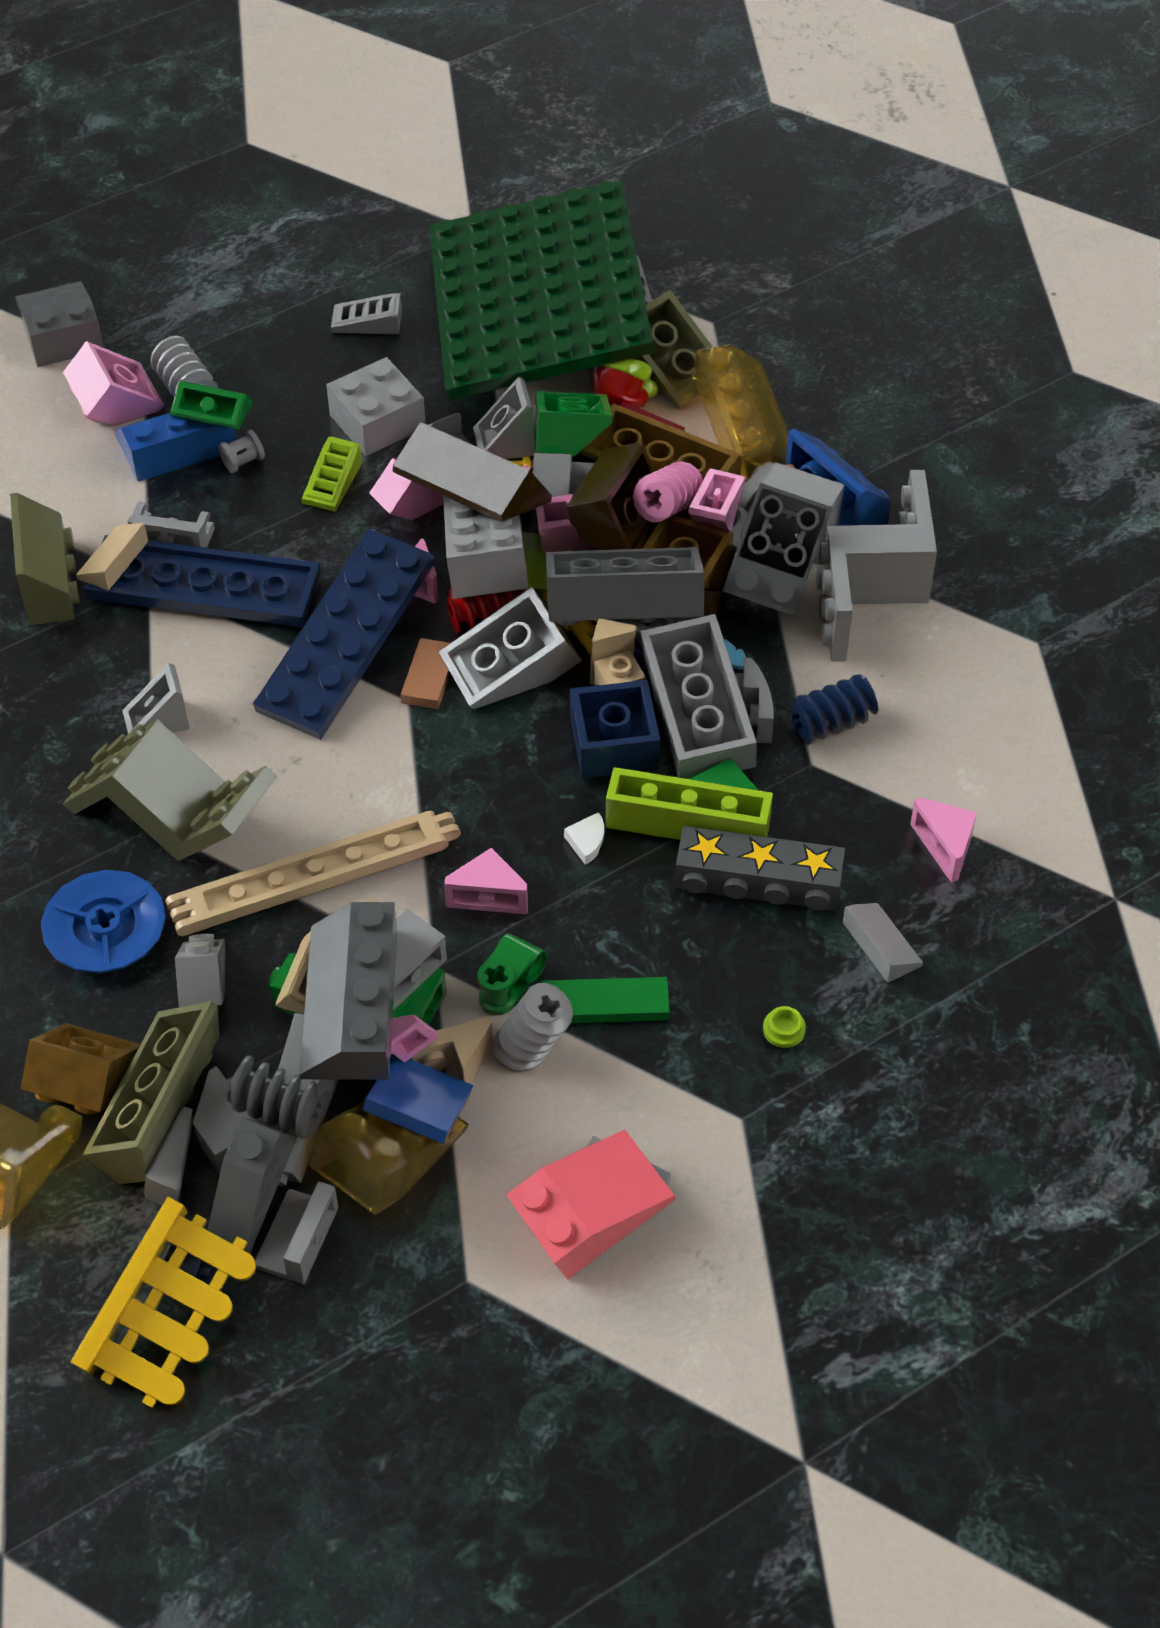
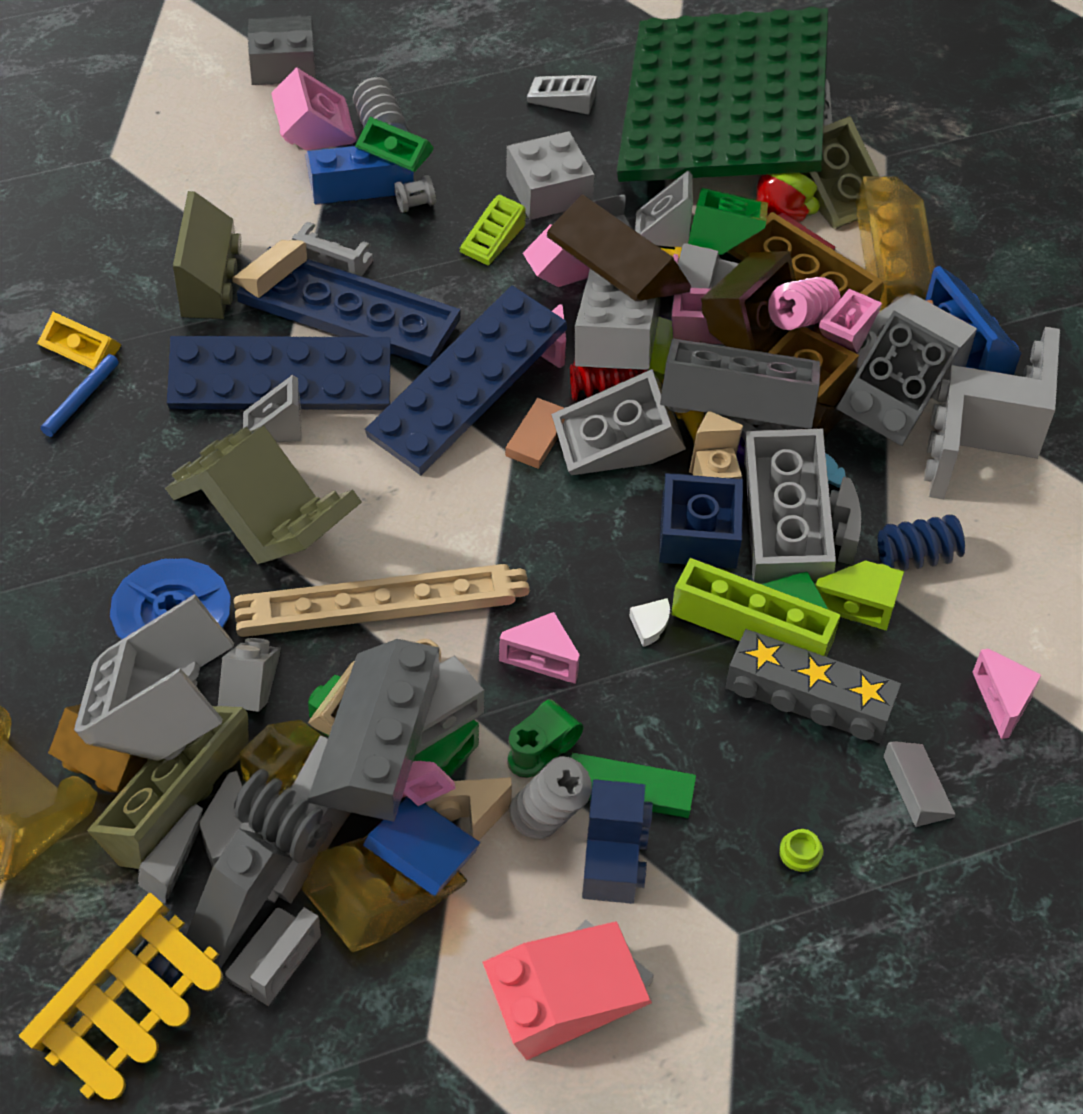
camera: 10 degrees right, 0 degrees up
(107, 1007) = (145, 687): none -> light grey windscreen
(115, 666) = (243, 369): none -> dark blue plate
(255, 1033) = (280, 750): none -> clear yellow slope
(603, 1055) = (615, 834): none -> dark blue brick
(788, 768) = (862, 592): none -> lime slope

